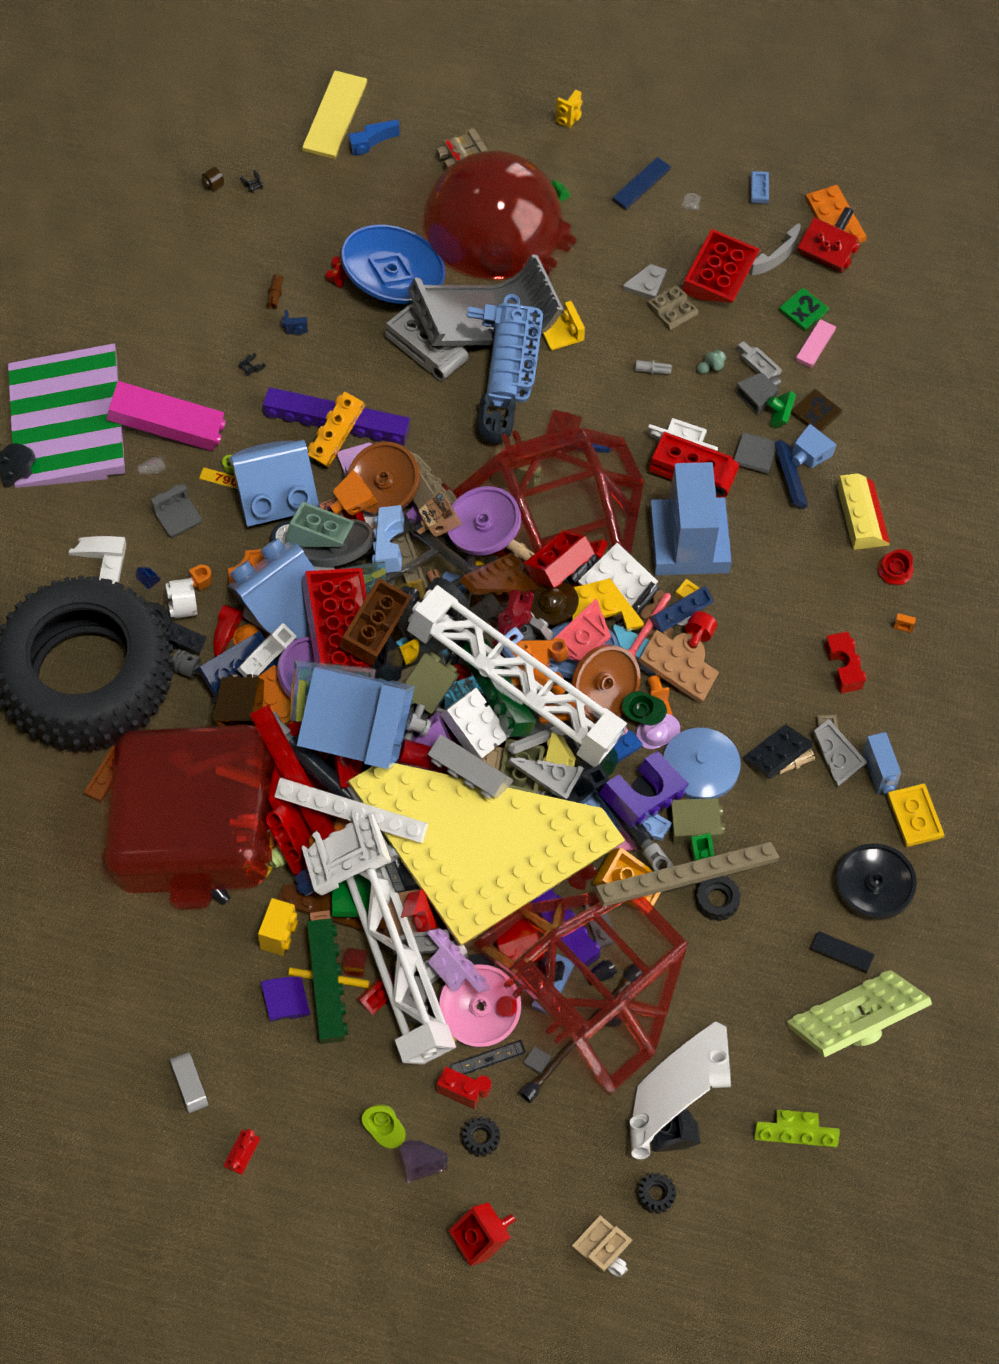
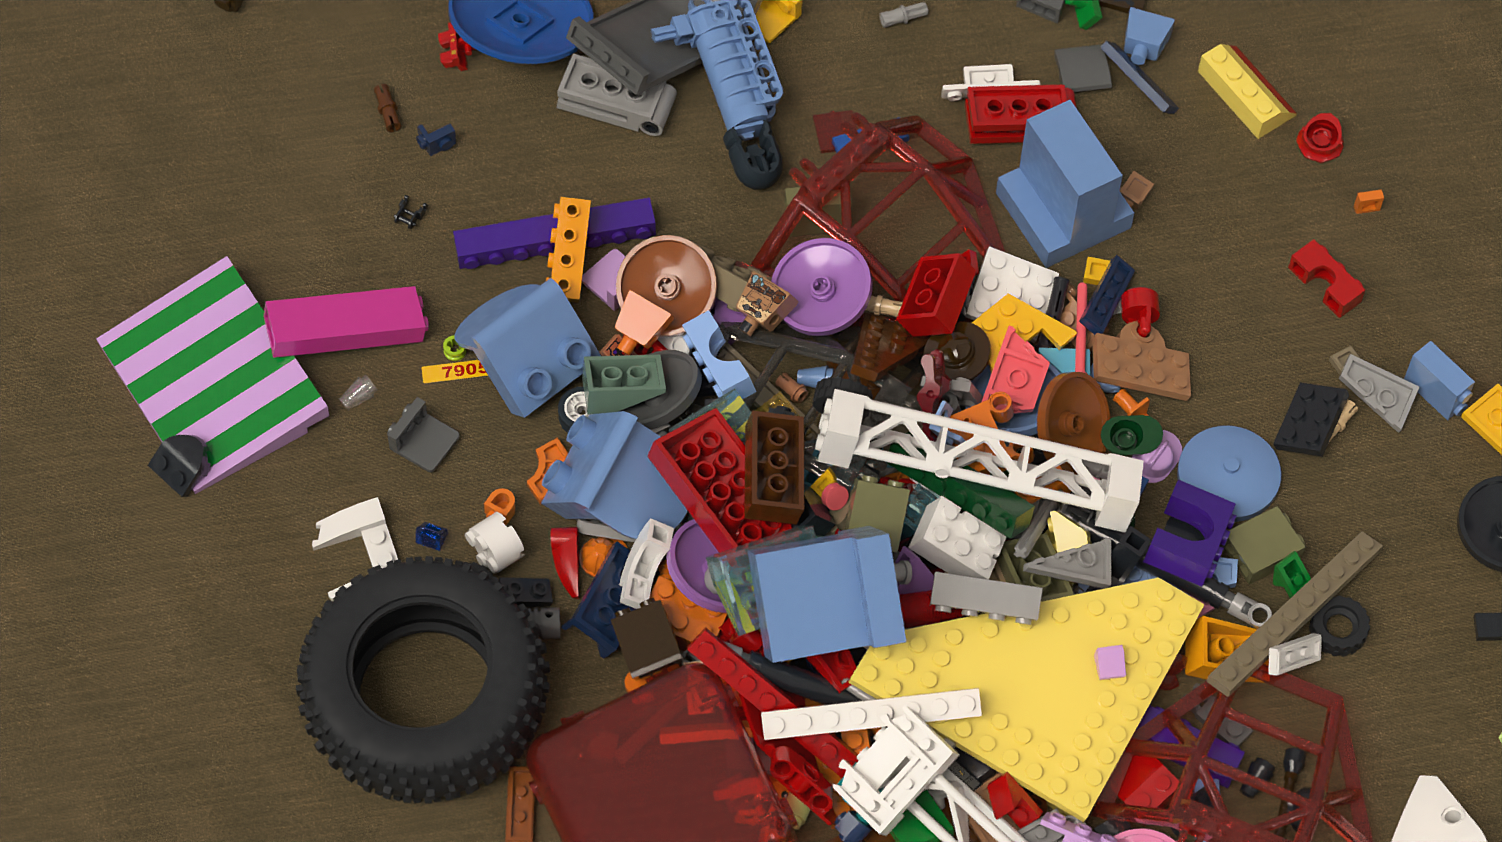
camera: 25 degrees left, 0 degrees up
(410, 659) = (834, 496): none -> coral tile
(533, 848) = (1110, 662): none -> lavender slope
(670, 900) = (1294, 654): none -> white tile
(743, 548) = (1136, 190): none -> medium nougat bracket

